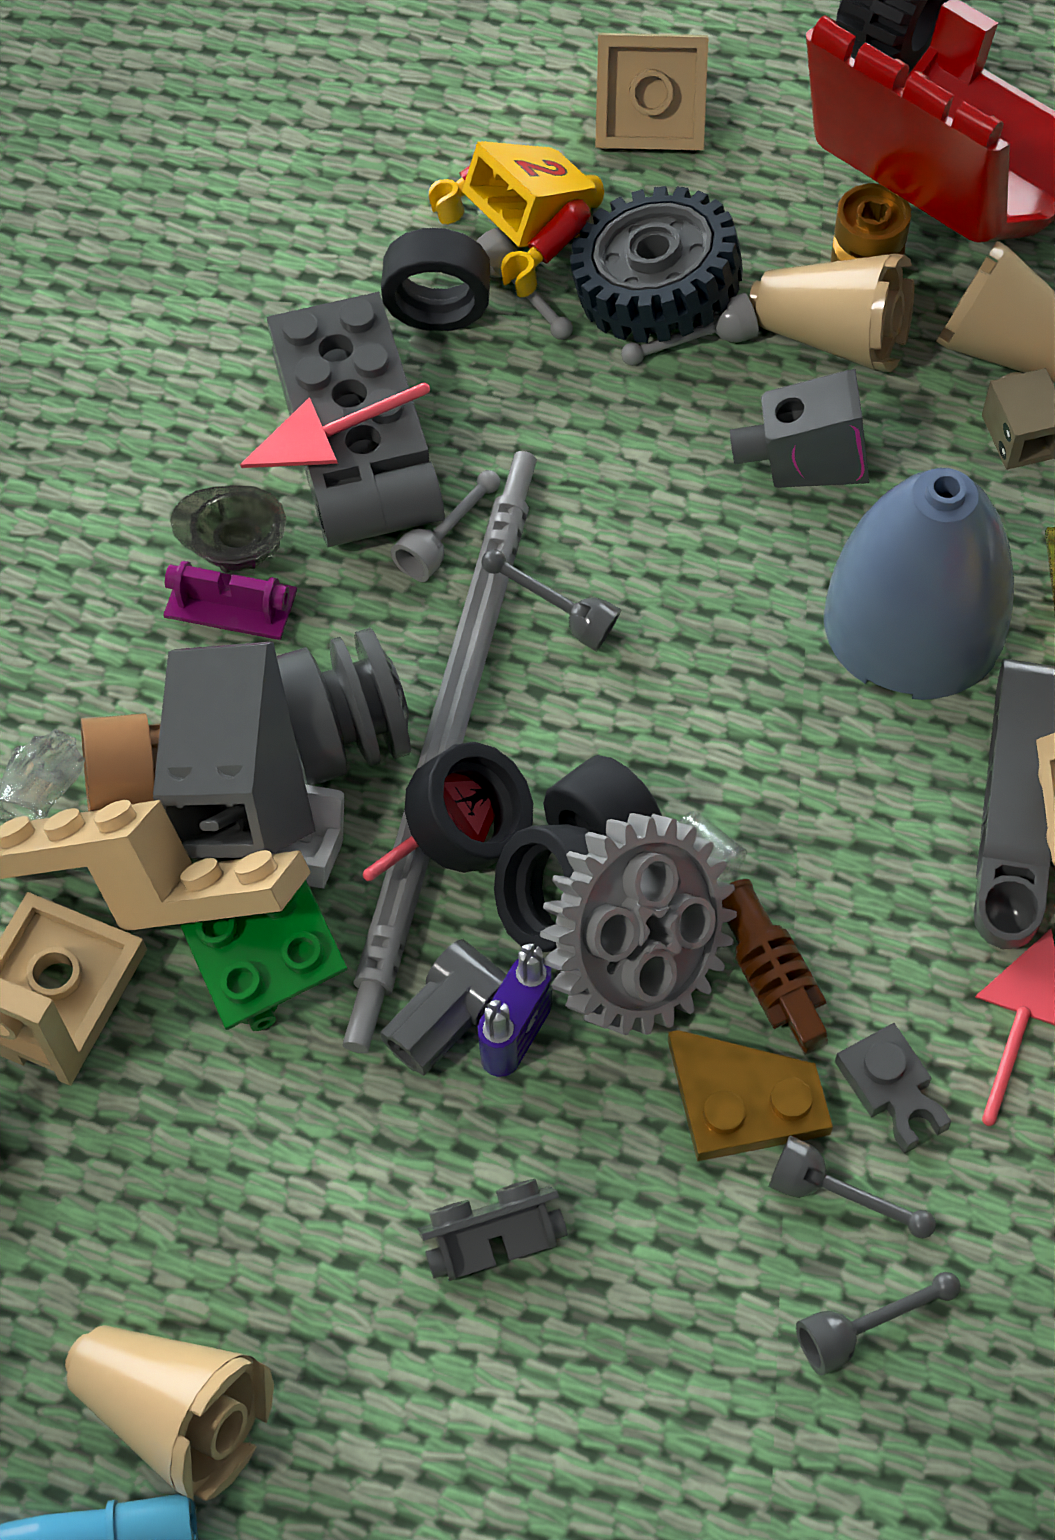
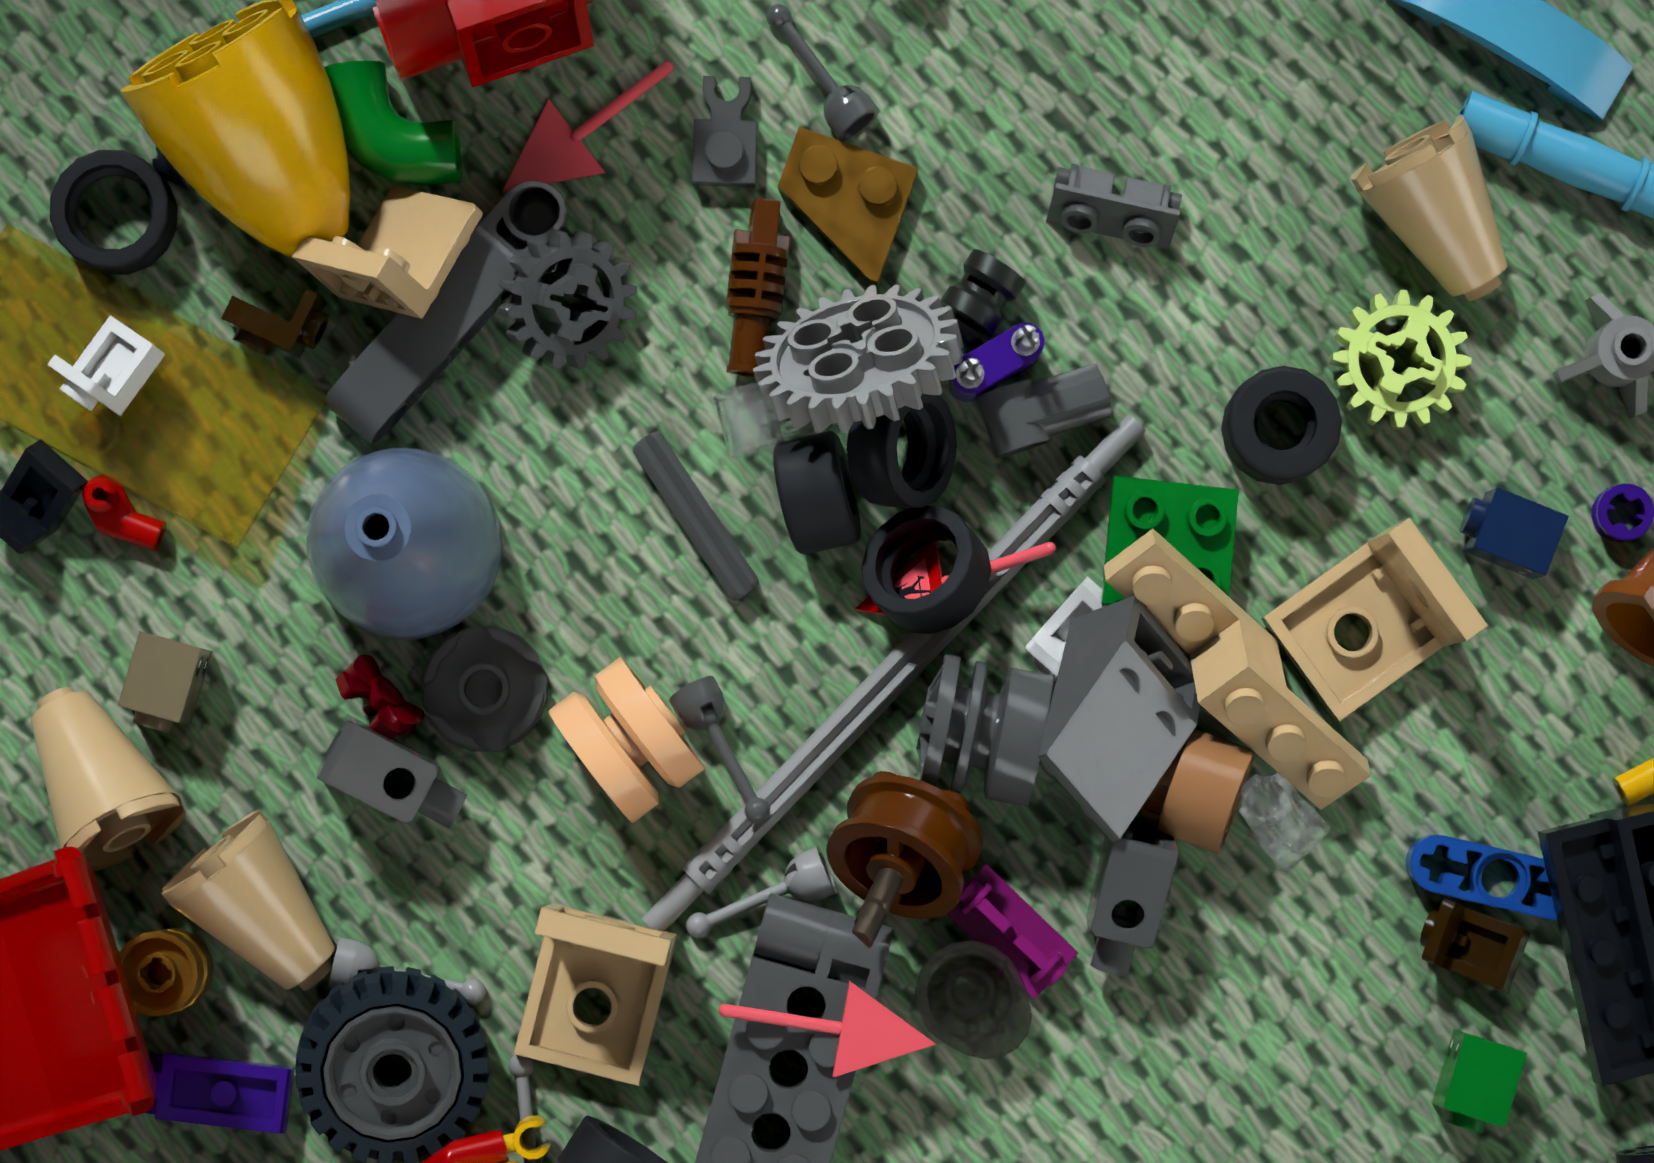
camera: 150 degrees left, 25 degrees up
(125, 1207) = (1427, 370): none -> yellowish green gear
(136, 643) = (1132, 869): none -> dark grey torso
(231, 1151) = (1313, 401): none -> black tyre
(353, 578) = (903, 850): none -> reddish brown wheel
(542, 387) = (604, 954): none -> tan bracket
(566, 1073) = (983, 292): none -> pearl dark grey wheel
(634, 543) = (634, 734): none -> light nougat wheel
(696, 761) = (695, 516): none -> dark grey axle
(771, 568) = (507, 698): none -> dark grey tile
(784, 194) = (222, 1092): none -> dark purple hinge
(847, 496) = (365, 680): none -> dark red piece
(931, 844) = (575, 273): none -> dark grey gear

